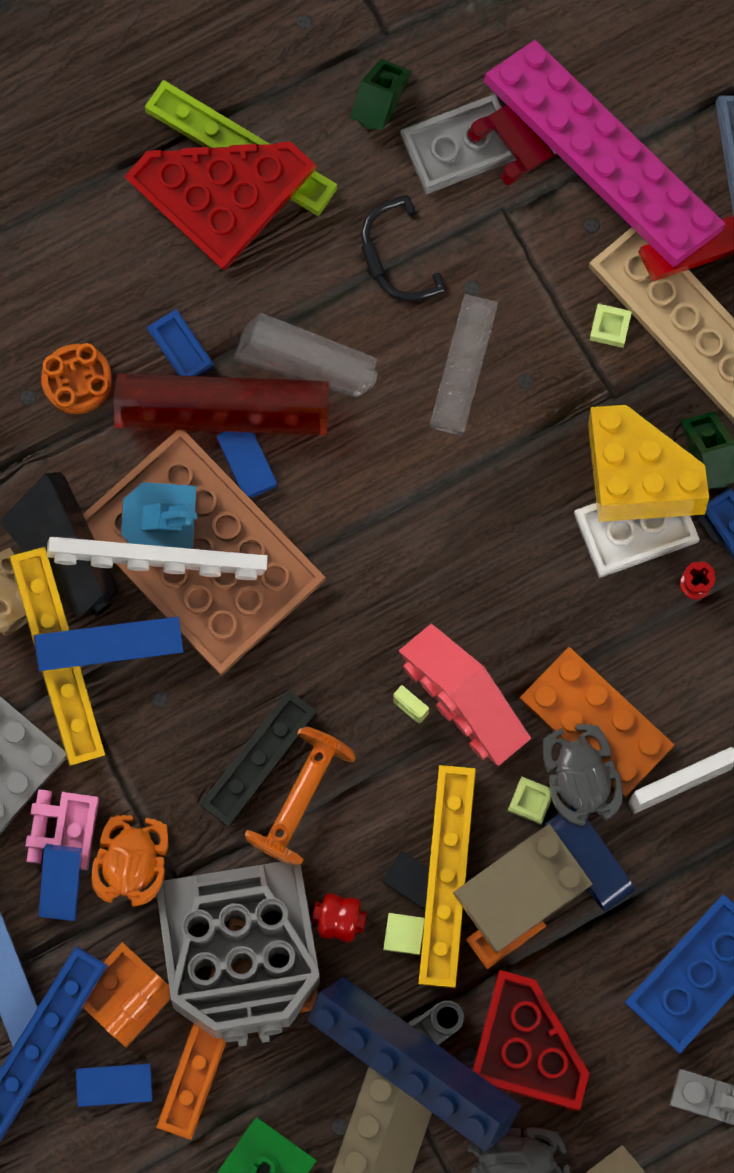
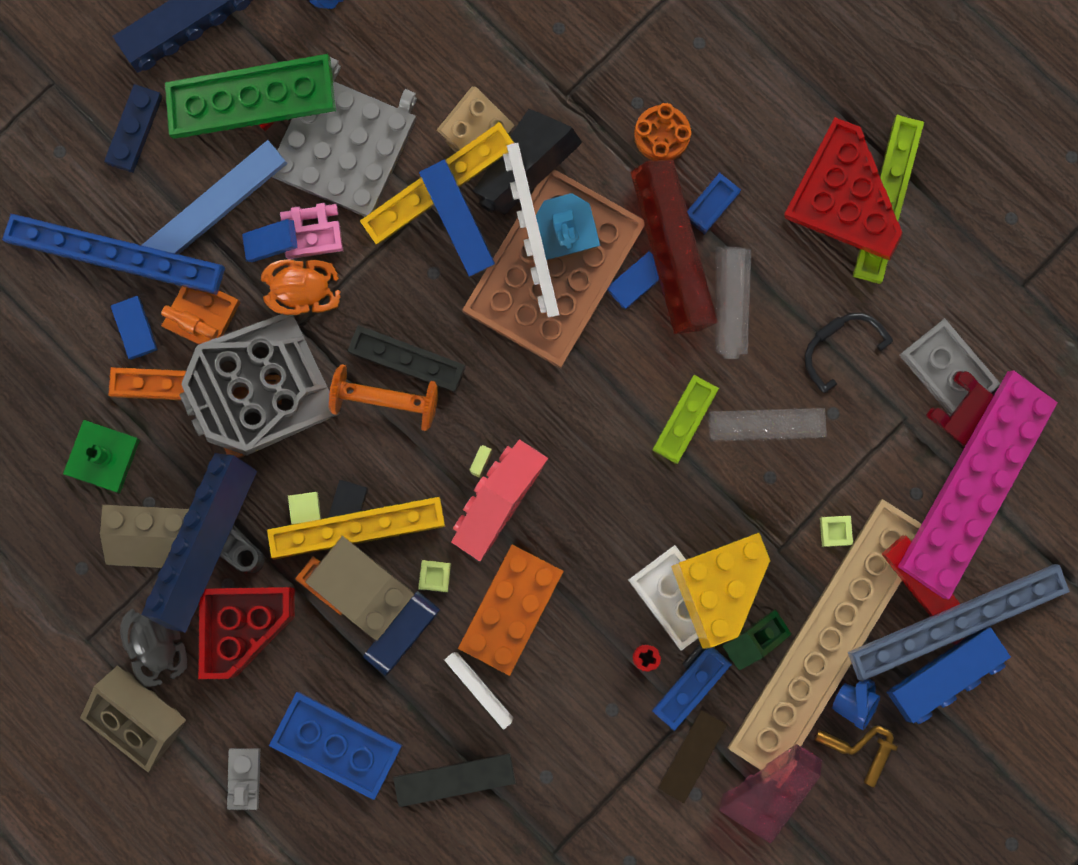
camera: 75 degrees right, 5 degrees up
(339, 917) = (301, 455): red piece -> none
(379, 94) = (969, 293): dark green slope -> none
(429, 455) = (685, 419): none -> lime tile
(582, 775) = (461, 609): dark grey shield -> none

